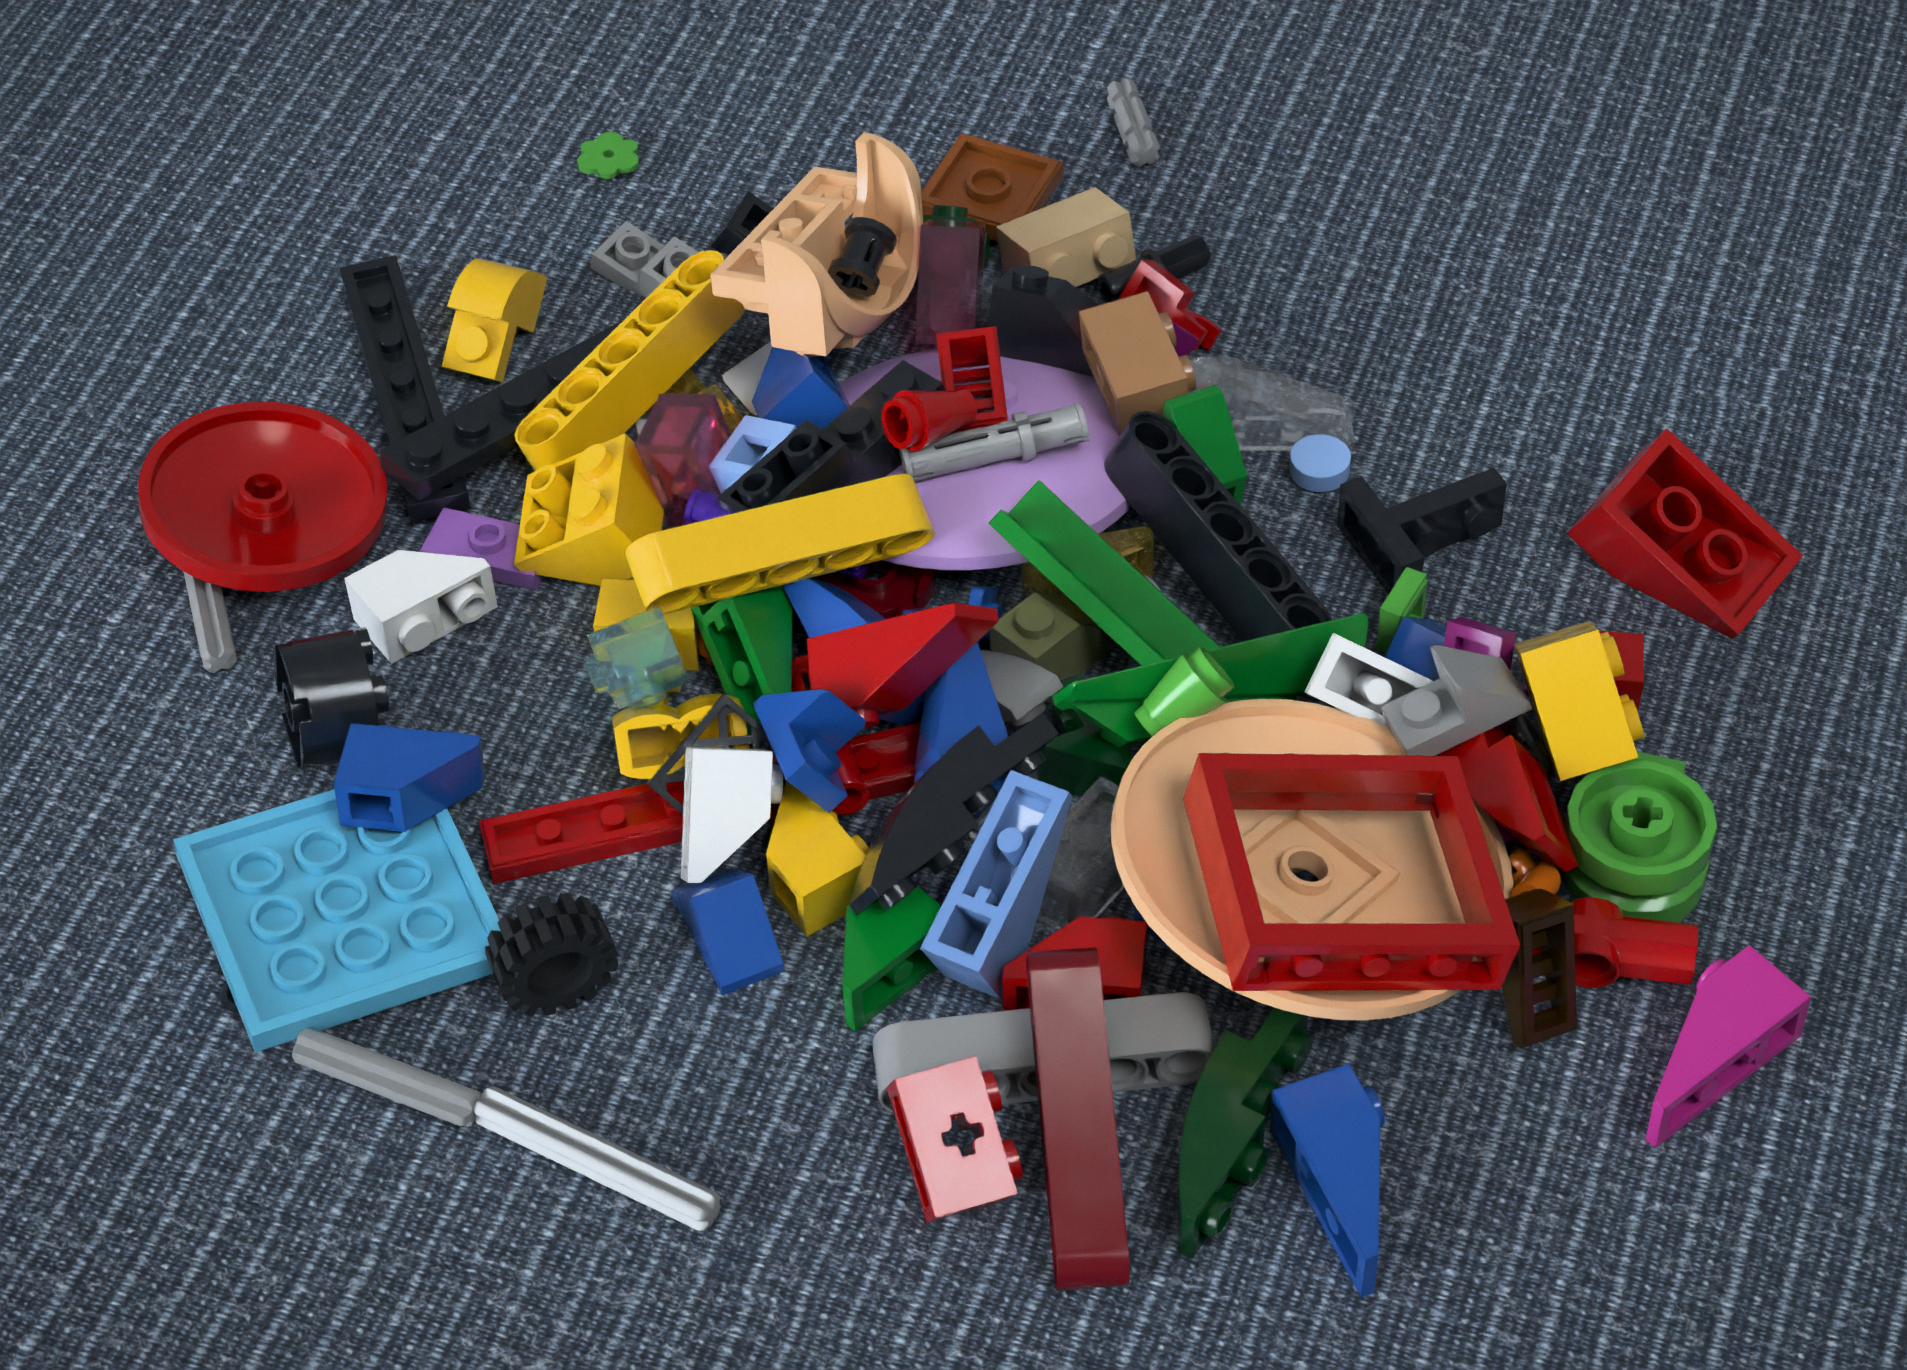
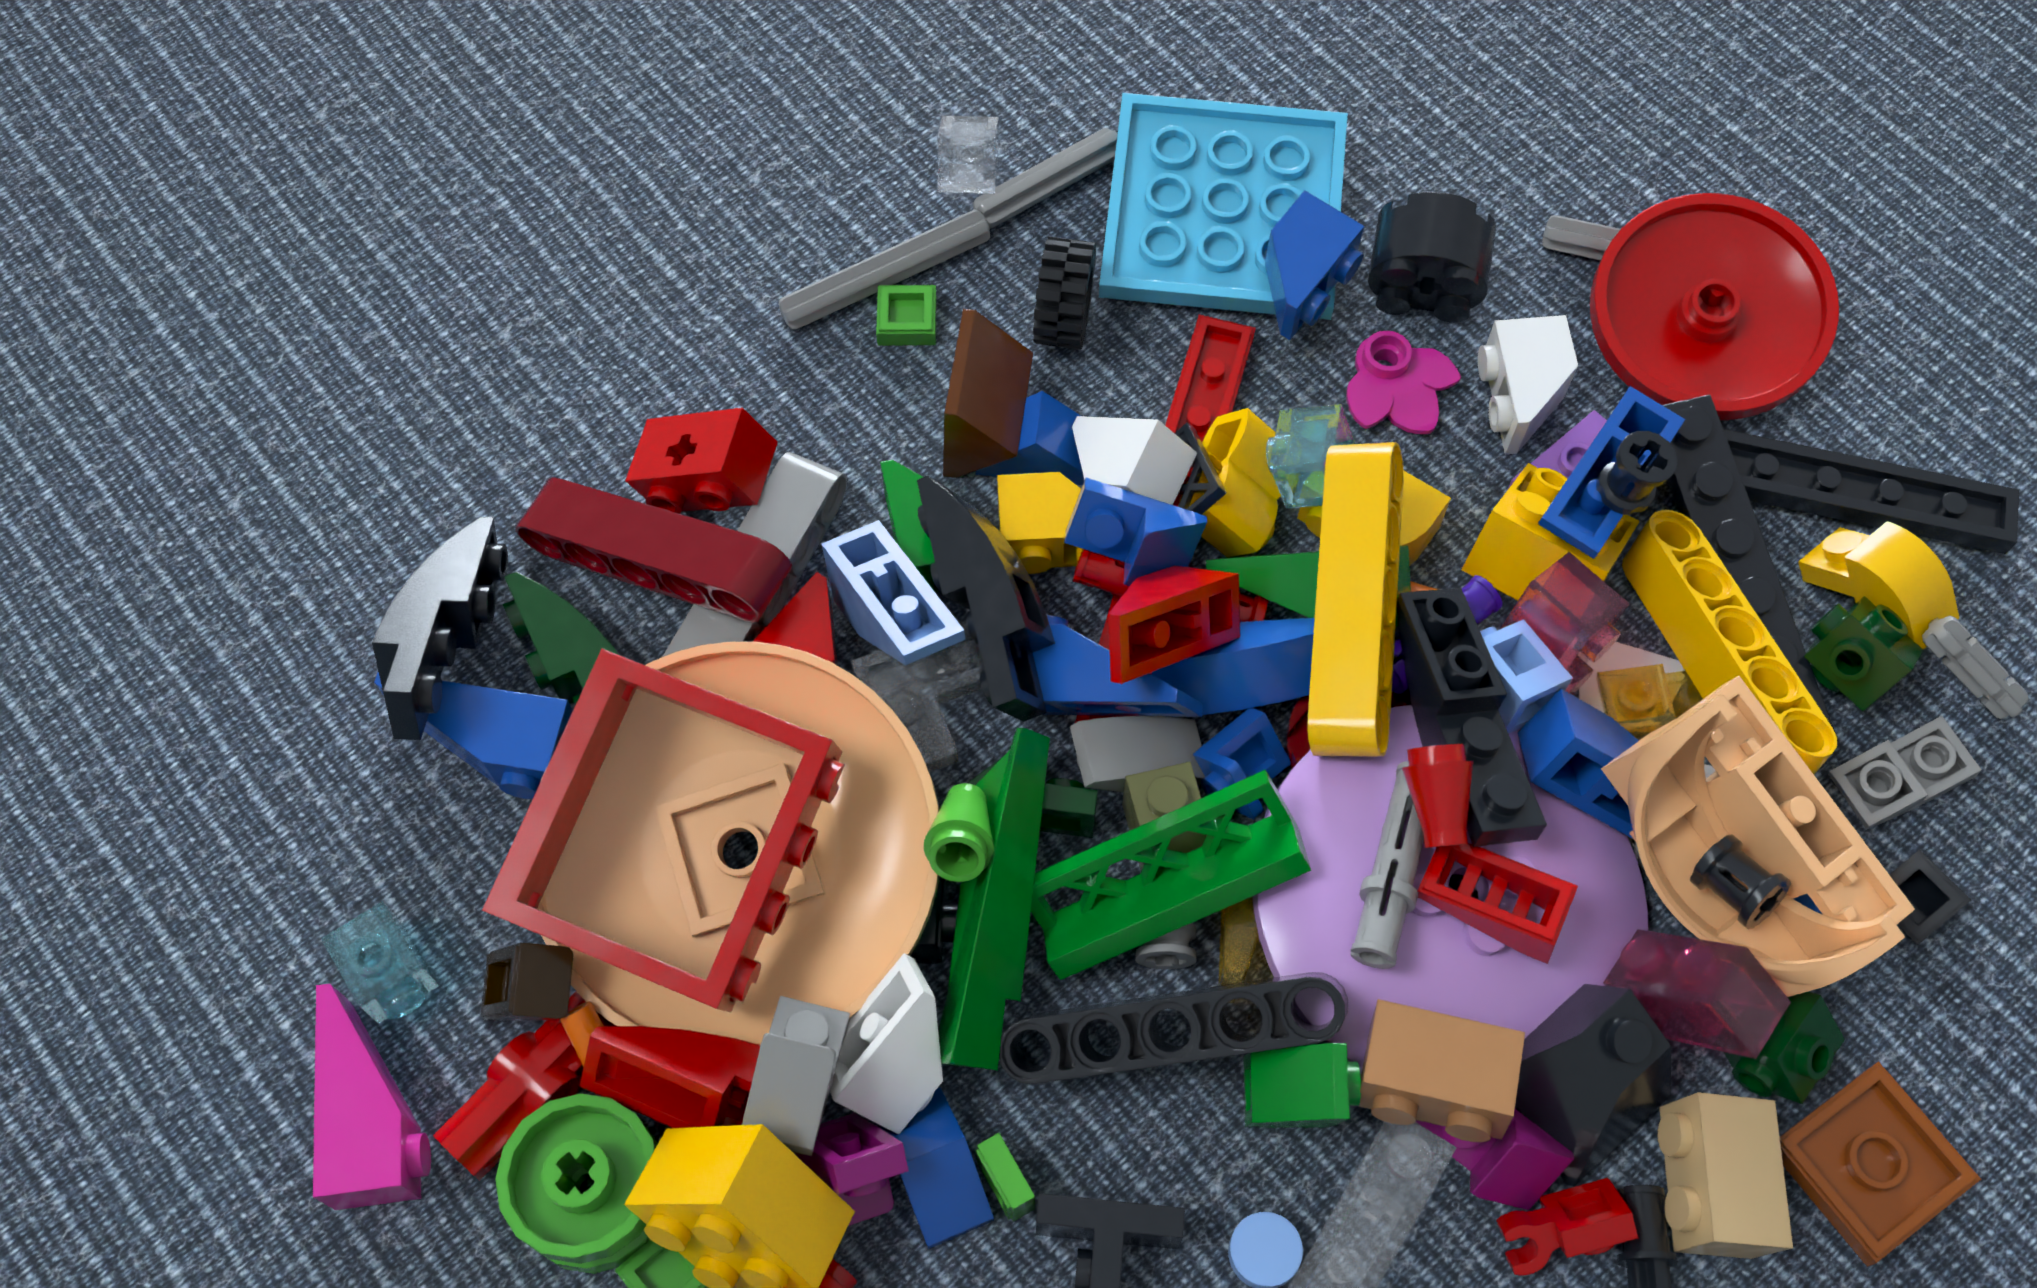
camera: 120 degrees right, 15 degrees up
(414, 1134) = (968, 154): none -> clear brick
(475, 696) = (1398, 391): none -> dark pink plate
(515, 468) = (1578, 510): none -> blue slope
(538, 243) = (1975, 667): none -> light grey axle
(543, 395) = (1646, 477): none -> black bush
(572, 300) = (1861, 651): none -> dark green brick
(640, 1113) = (906, 315): none -> bright green tile
(727, 966) = (984, 397): none -> reddish brown slope
(1266, 1248) = (433, 616): none -> slope
(1601, 1107) = (380, 964): none -> clear light blue brick

